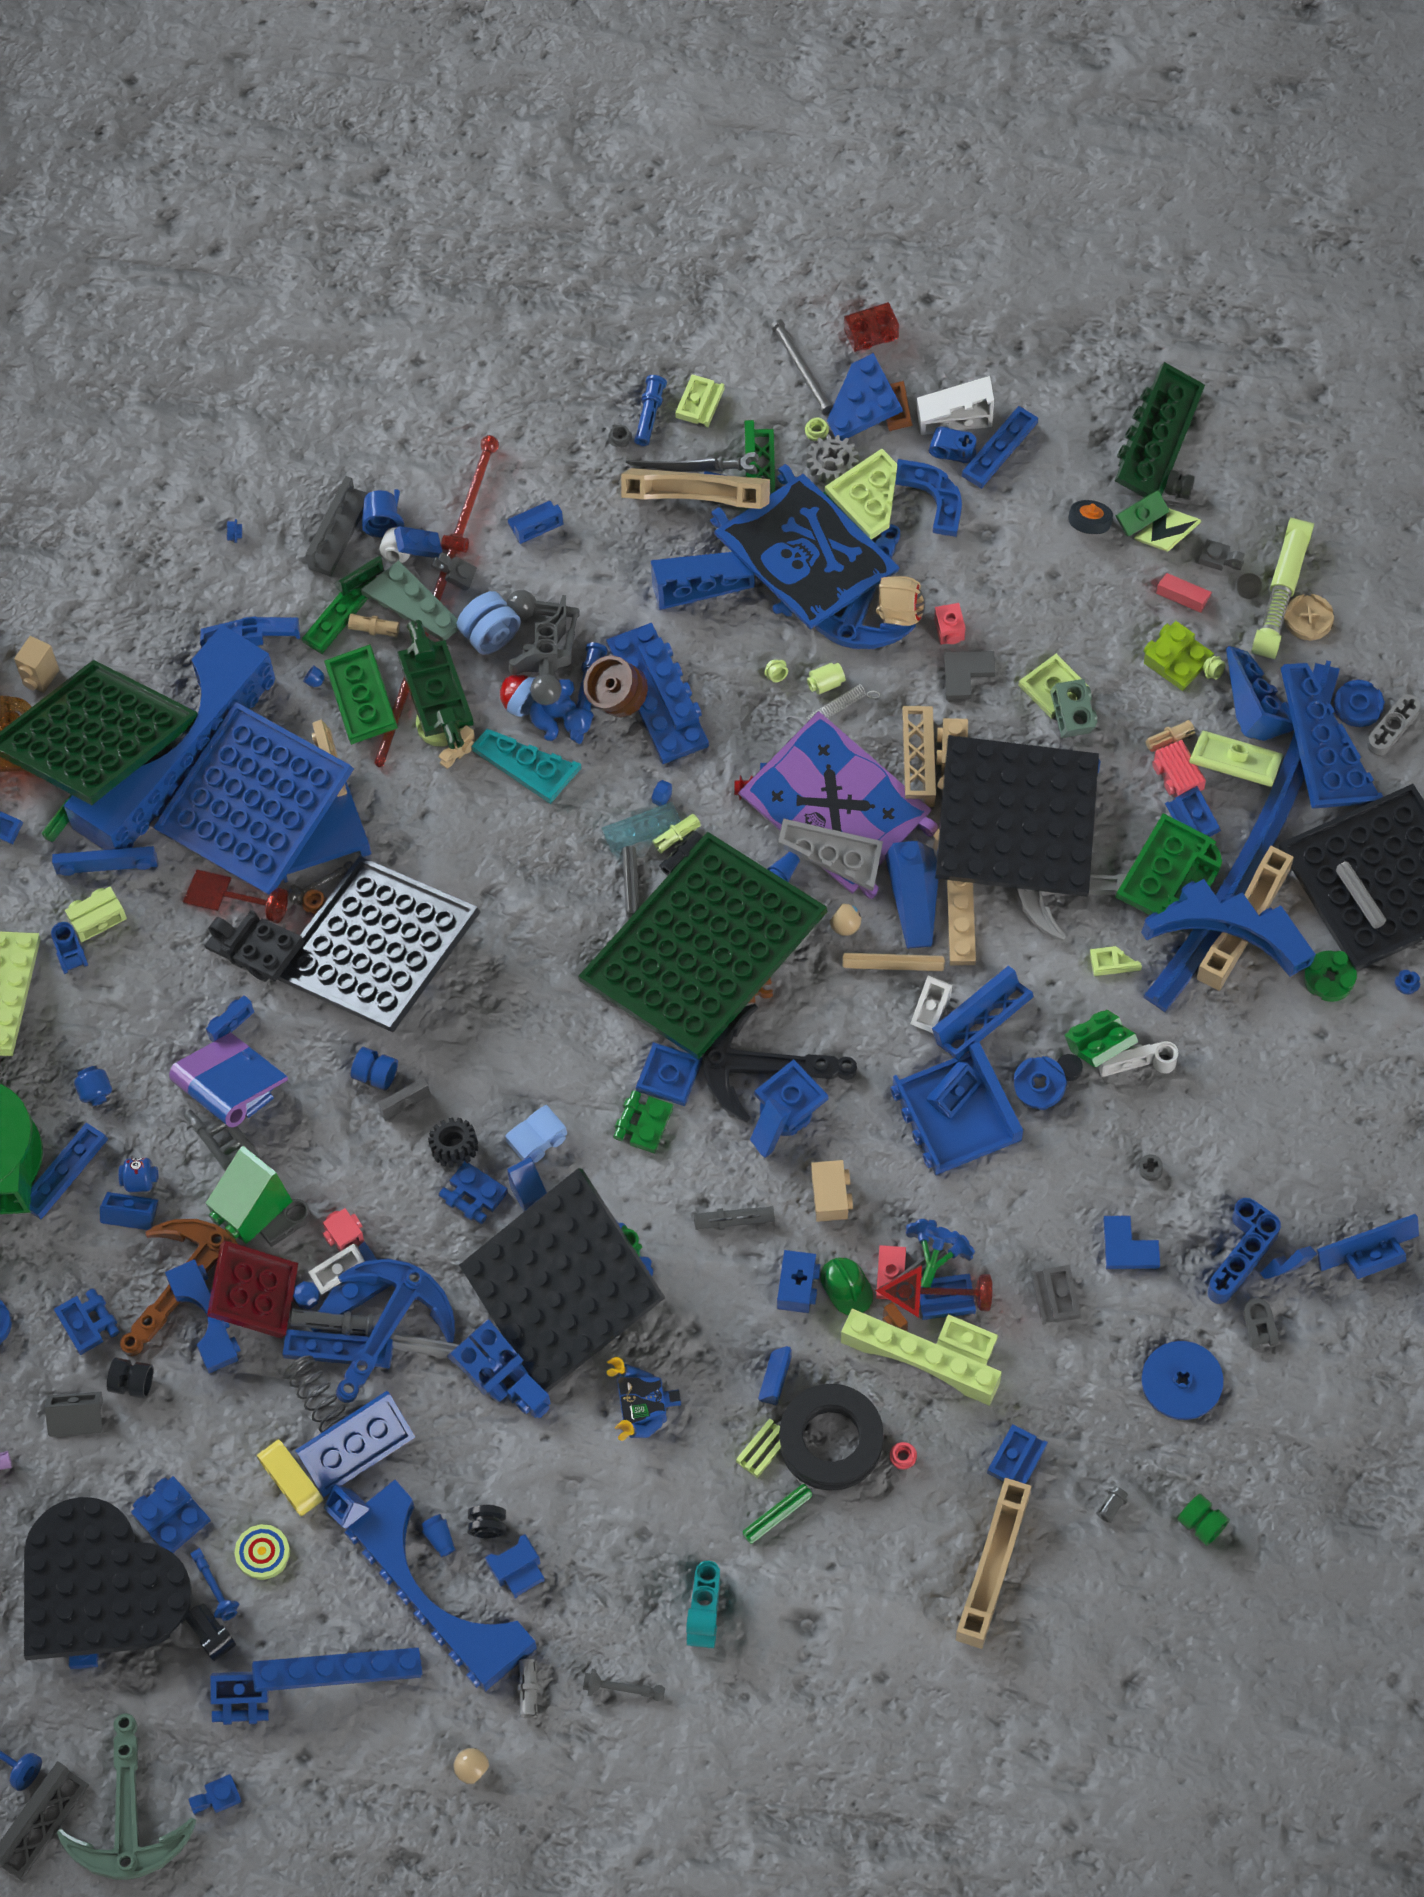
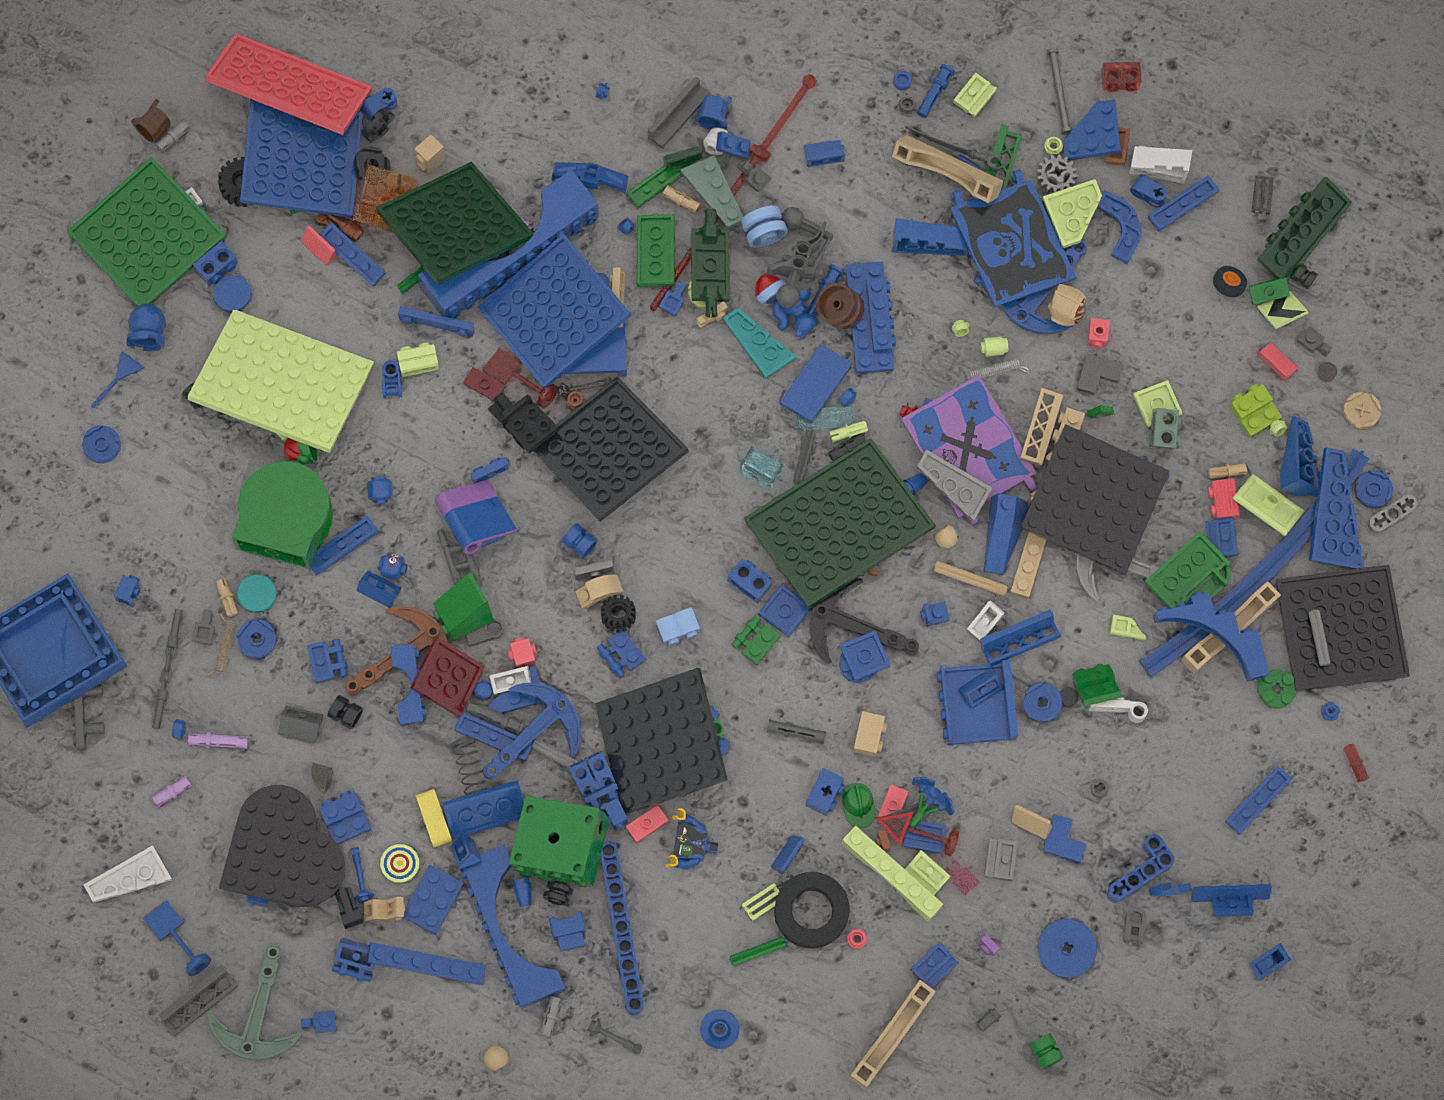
camera: 10 degrees right, 10 degrees up
(122, 1471) = (321, 776): none -> clear smoke brick
(189, 918) = (483, 384): none -> dark red plate
(260, 1618) = (384, 910): none -> tan brick
(321, 1585) = (432, 899): none -> blue plate
(402, 747) = (672, 301): none -> blue plate
(417, 1120) = (599, 589): none -> tan brick
(466, 1450) = (559, 841): none -> green gear
(526, 1183) = (659, 663): blue slope -> none
(576, 1396) = (647, 823): none -> coral plate
(580, 909) = (761, 467): none -> clear light blue brick
(589, 1552) = (621, 937): none -> blue beam
(604, 411) = (902, 80): none -> blue tile
(607, 1056) = (745, 584): none -> blue brick
(616, 789) = (816, 383): none -> blue tile
(701, 1619) = (682, 1010): teal piece -> none
(760, 1617) = (721, 1019): none -> blue dish
(769, 1127) = (842, 674): blue slope -> none
(862, 1018) = (934, 613): none -> blue bracket
(984, 713) = (1092, 413): none -> green tile
(1016, 1336) = (963, 880): none -> clear pink plate
(1078, 1234) = (1031, 822): none -> tan slope
(1079, 1408) = (988, 945): none -> medium lavender plate
(1096, 426) = (1260, 209): none -> clear smoke tile
(1283, 587) = (1351, 381): yellowish green piece -> none
(1359, 1117) = (1258, 800): none -> blue plate

